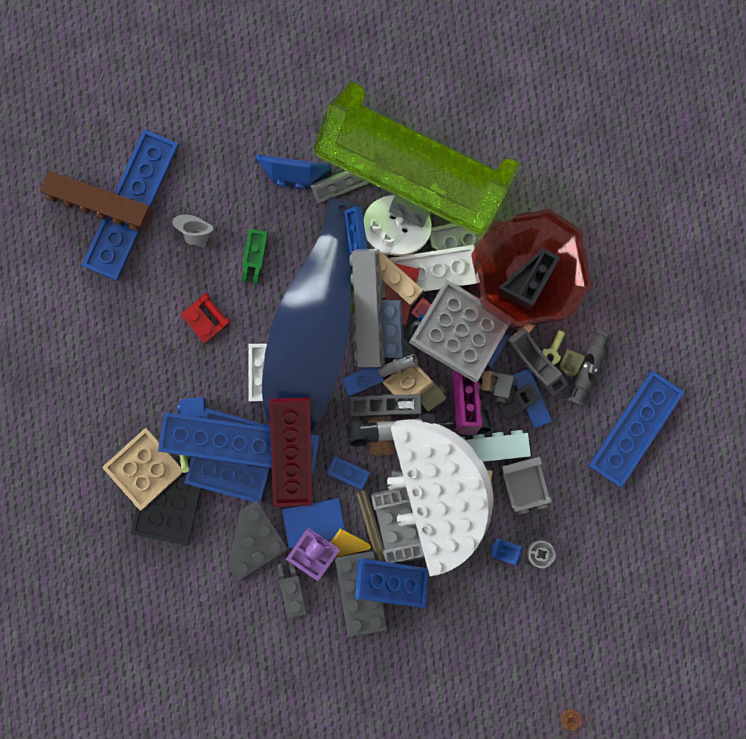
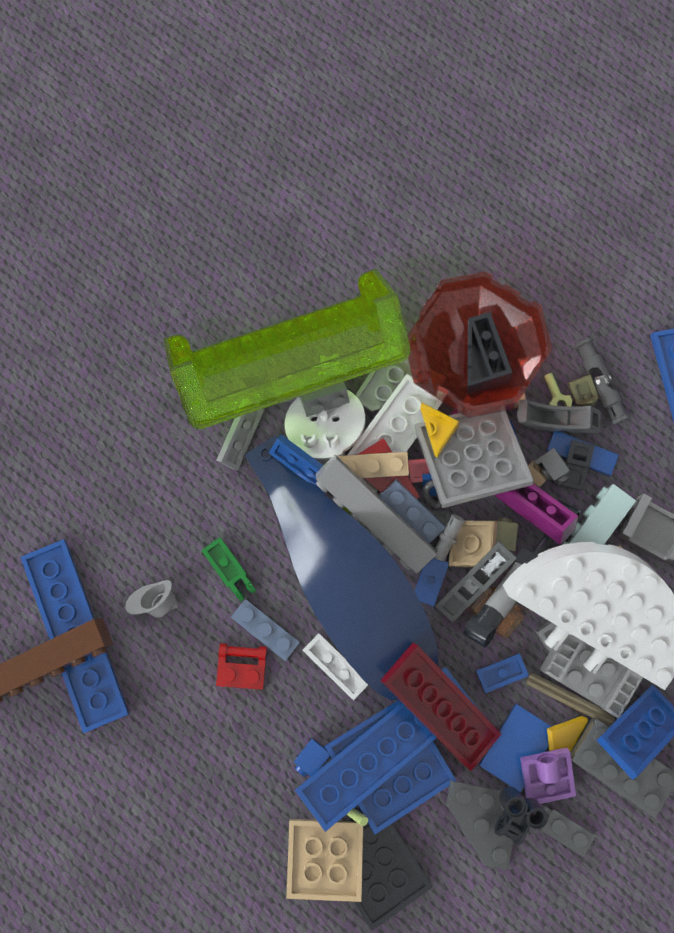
camera: 45 degrees left, 5 degrees down
(239, 311) = (265, 630): none -> sand blue plate
(269, 556) = (516, 818): none -> black piece
(293, 172) = (189, 465): blue wedge -> none
(457, 296) = (438, 426): none -> yellow tile

